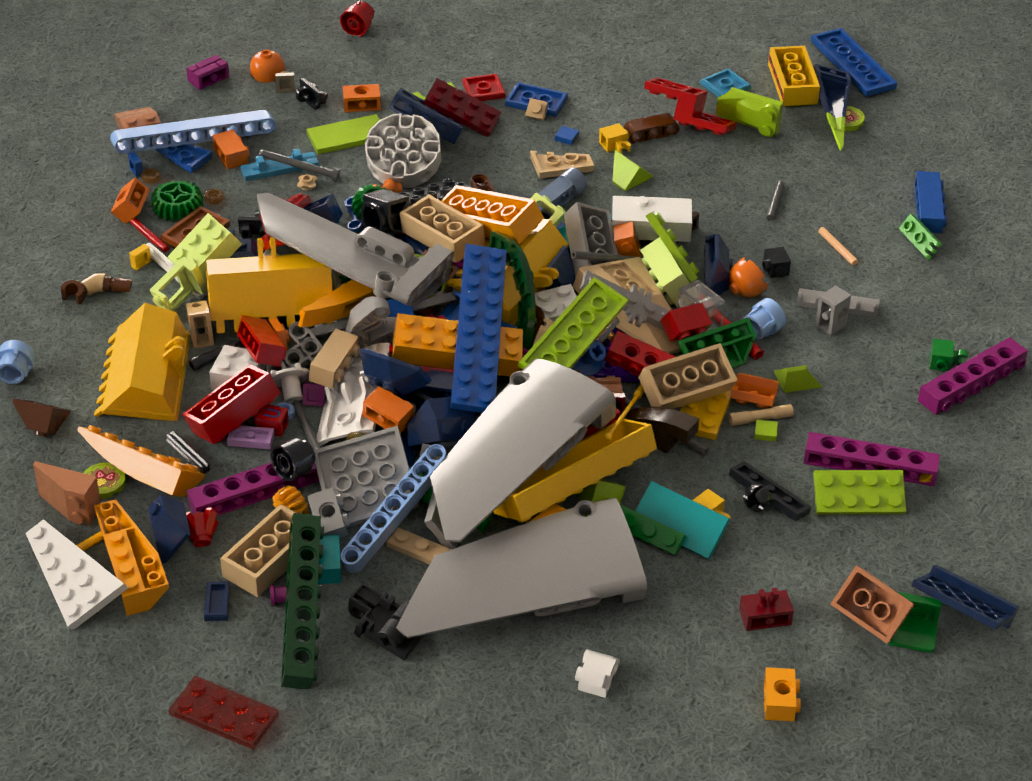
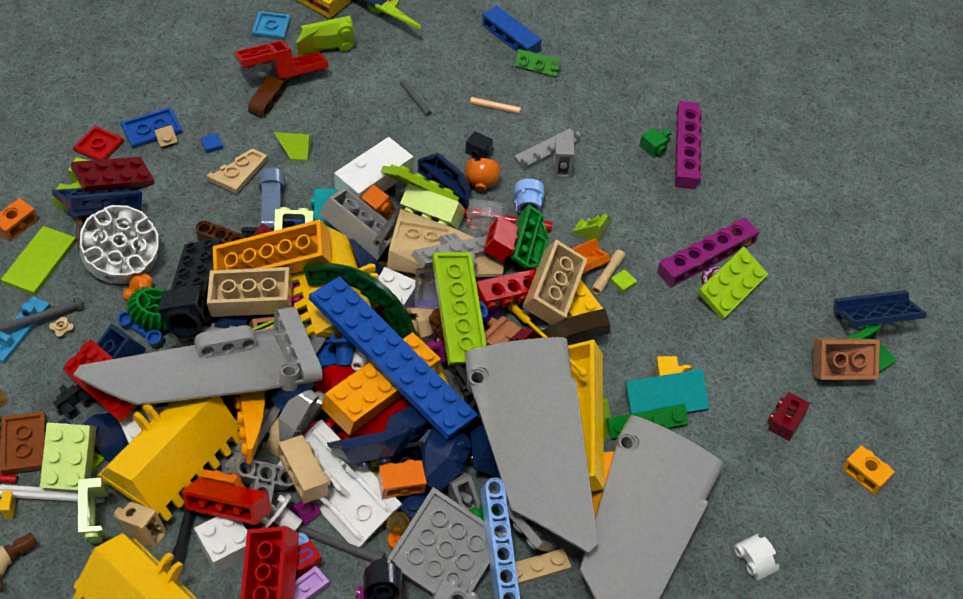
camera: 50 degrees left, 10 degrees up
(614, 138) = (253, 121): yellow brick -> none
(766, 492) = (683, 327): black plate -> none

